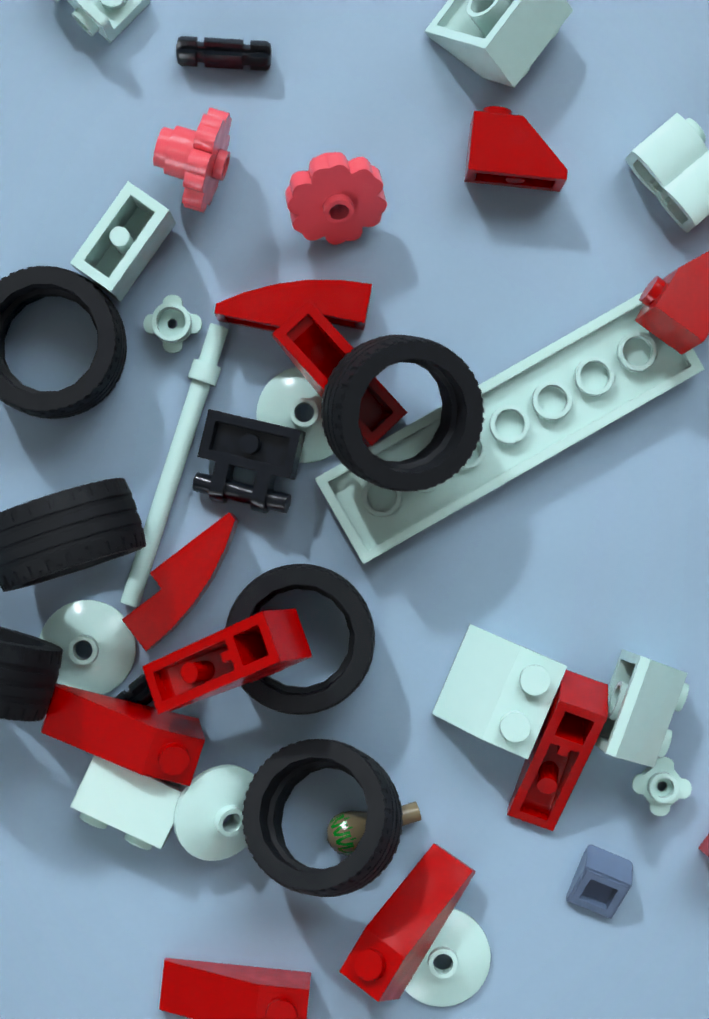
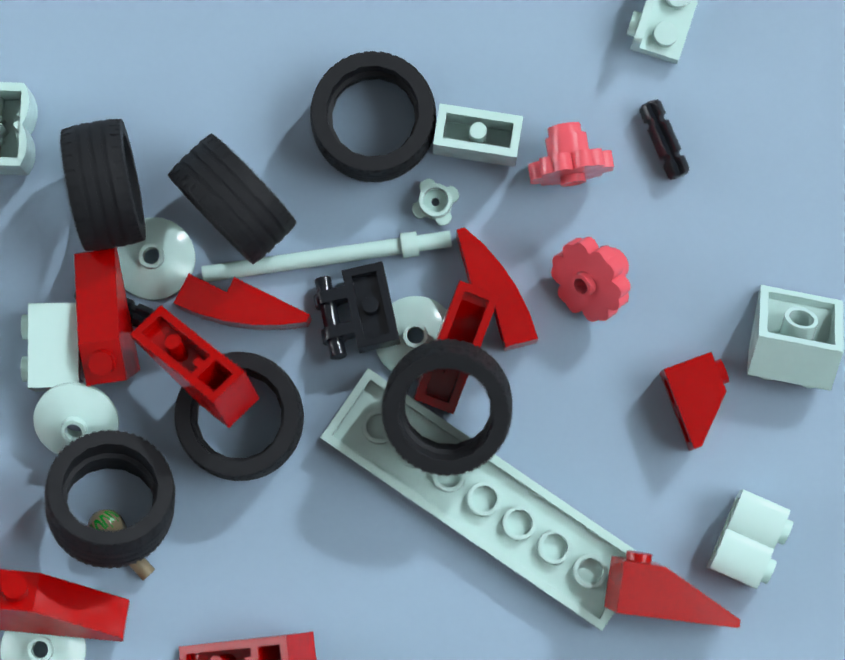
camera: 70 degrees right, 5 degrees down
(499, 691) = (272, 590): light aqua slope -> none

